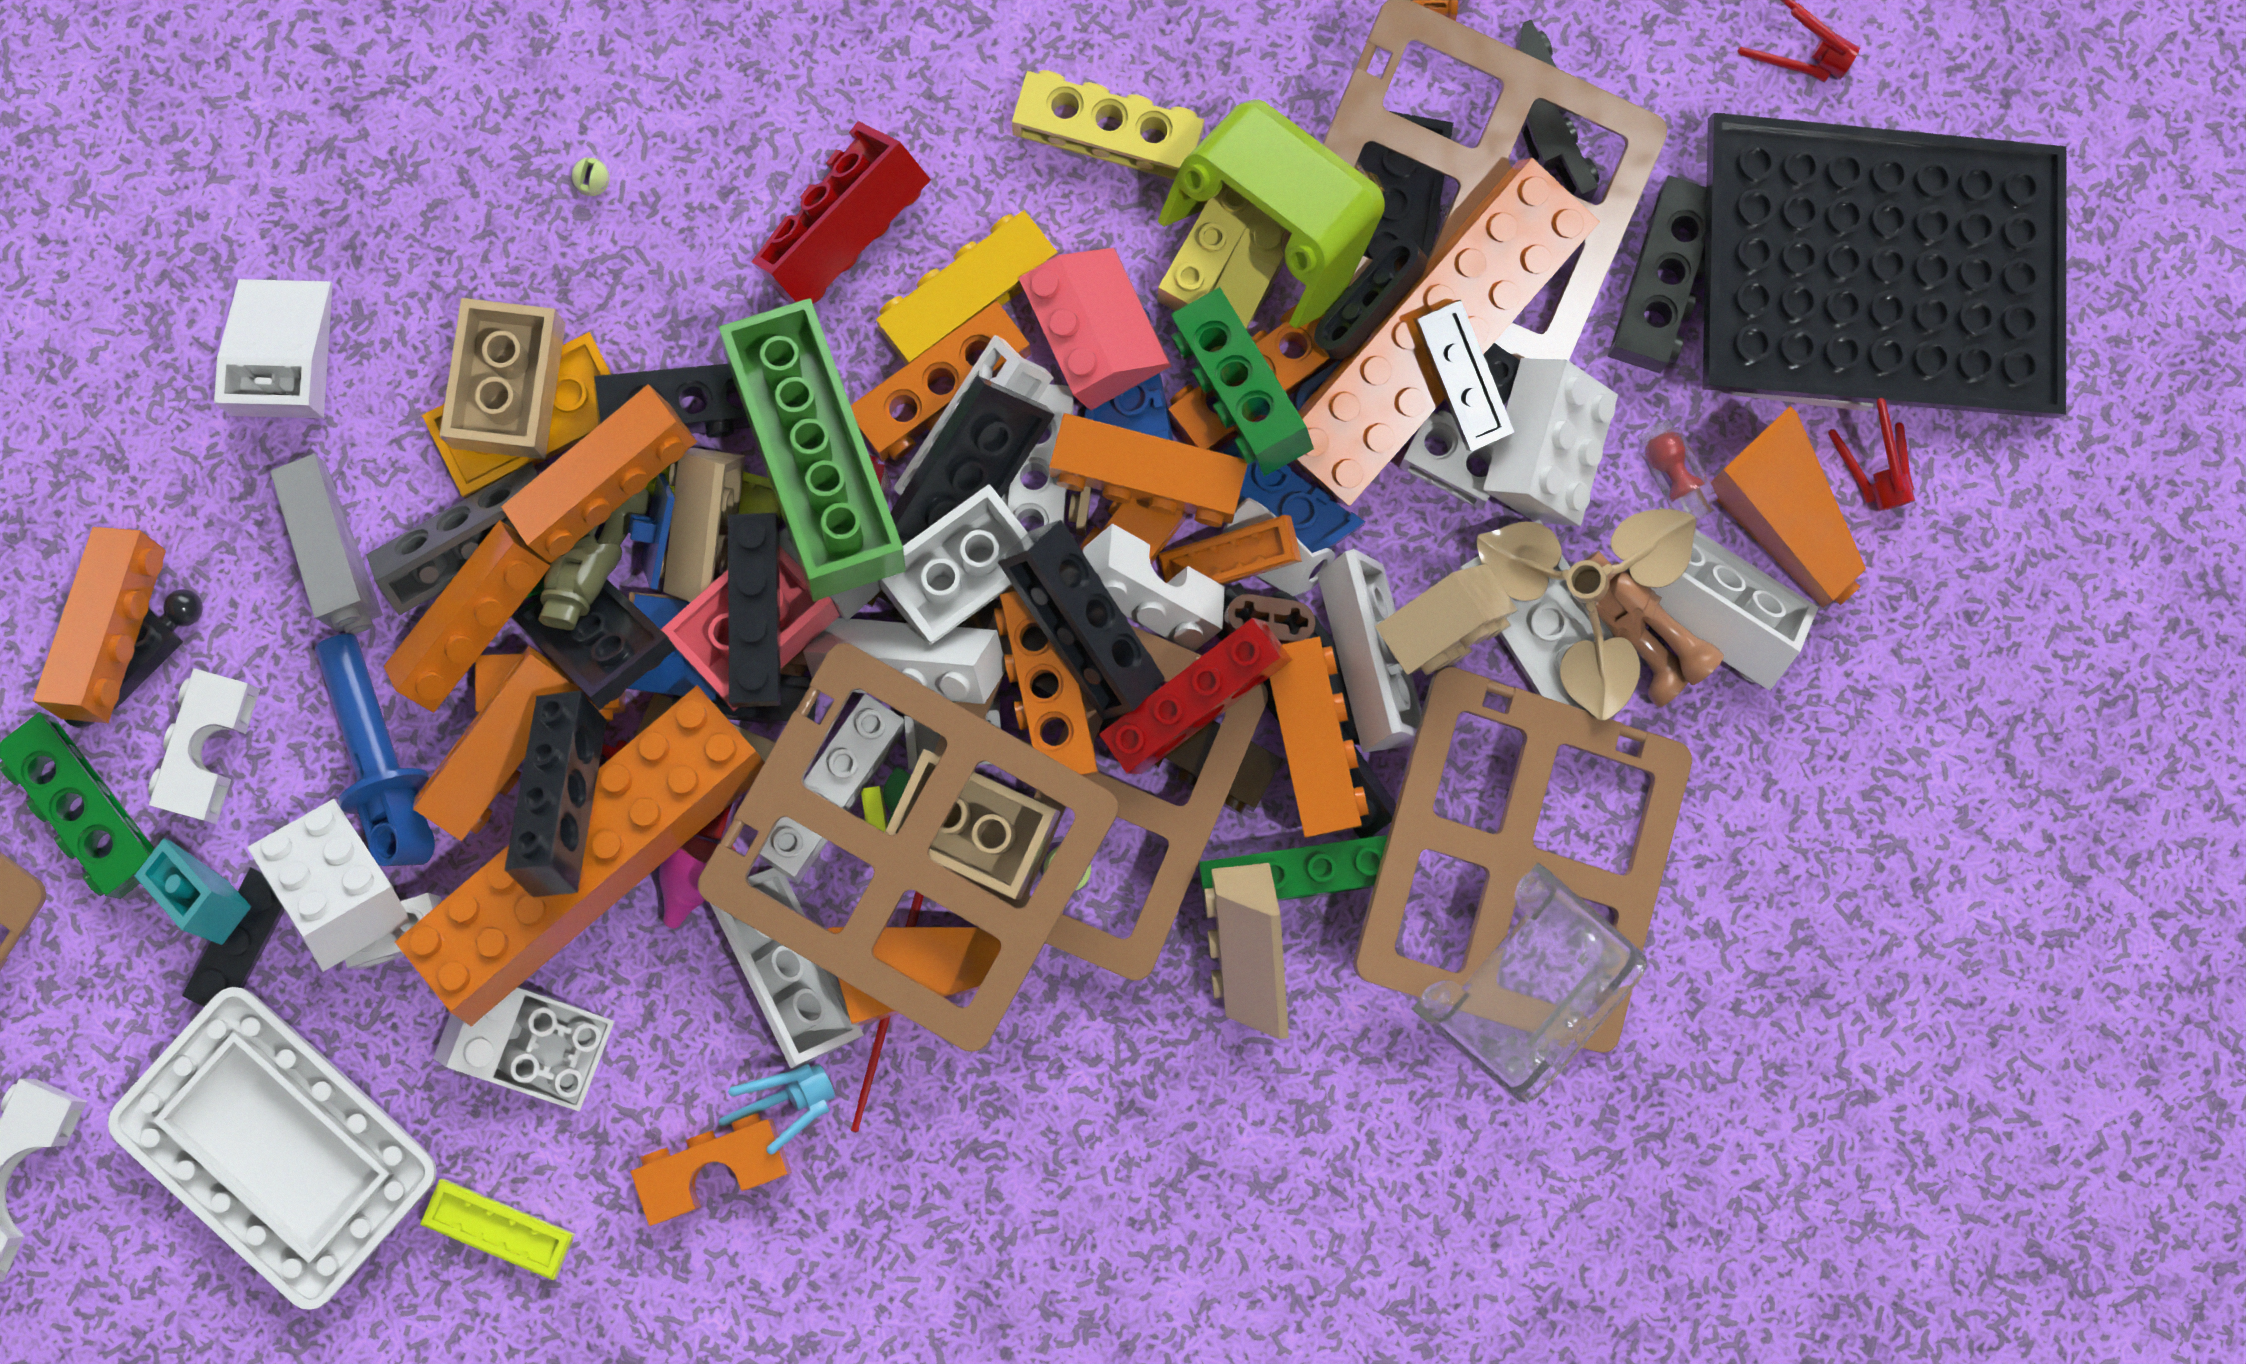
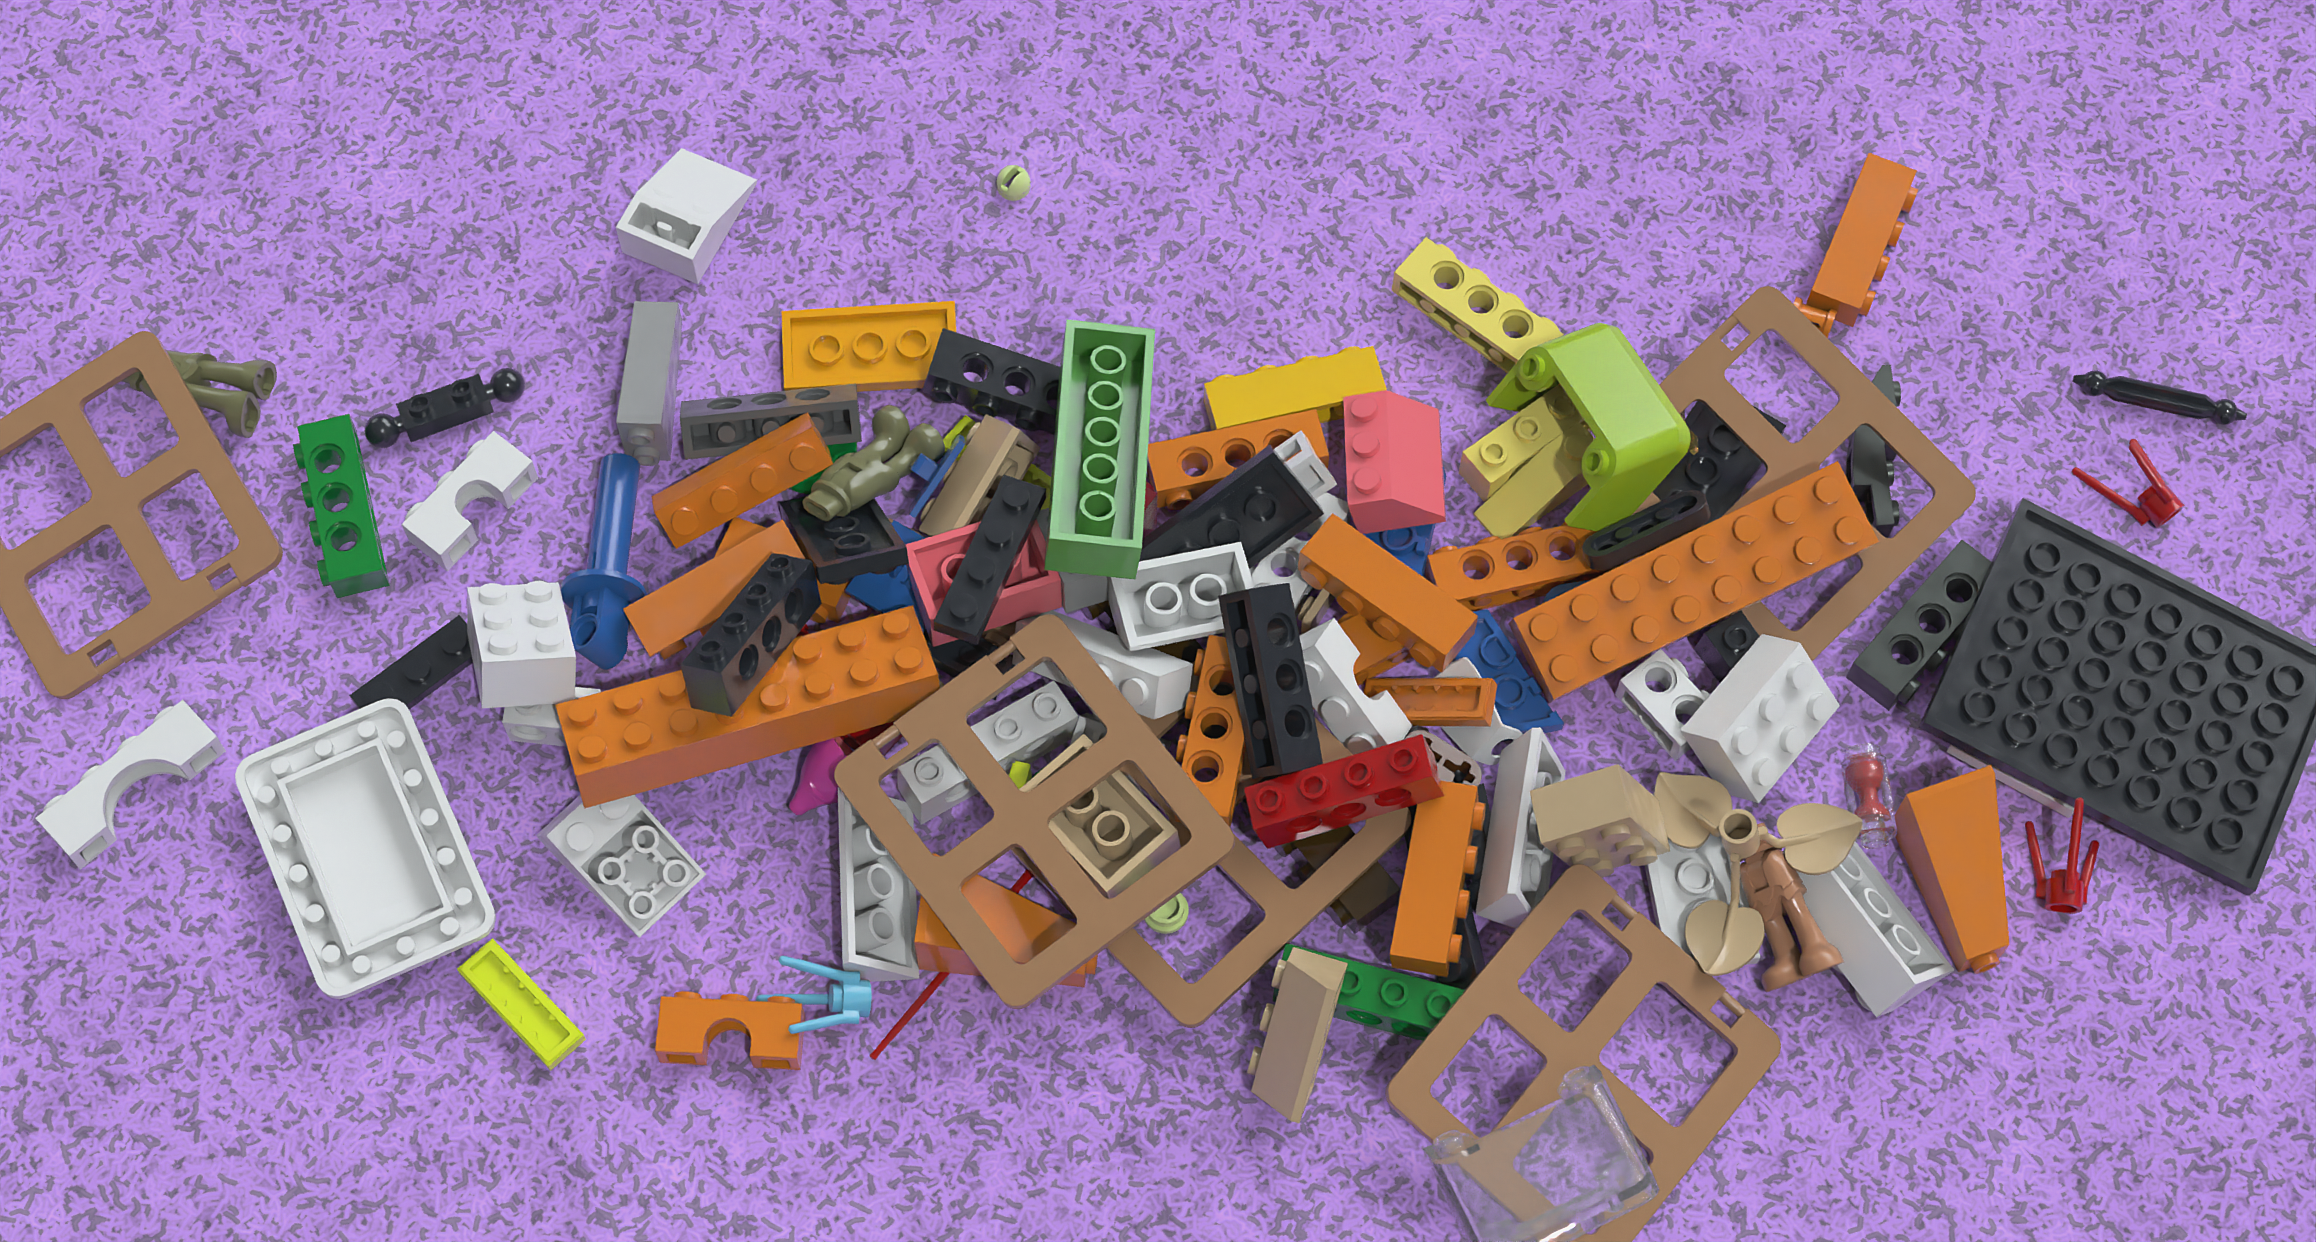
camera: 25 degrees right, 15 degrees down
(100, 625) = (433, 365): orange brick -> none
(192, 893) = (403, 608): teal slope -> none
(502, 378) = (864, 303): tan brick -> none
(599, 474) = (909, 403): orange brick -> none
(841, 215) = (1215, 291): red wedge -> none
(1214, 323) = (1501, 552): green brick -> none
(1463, 375) = (1701, 619): plate -> none

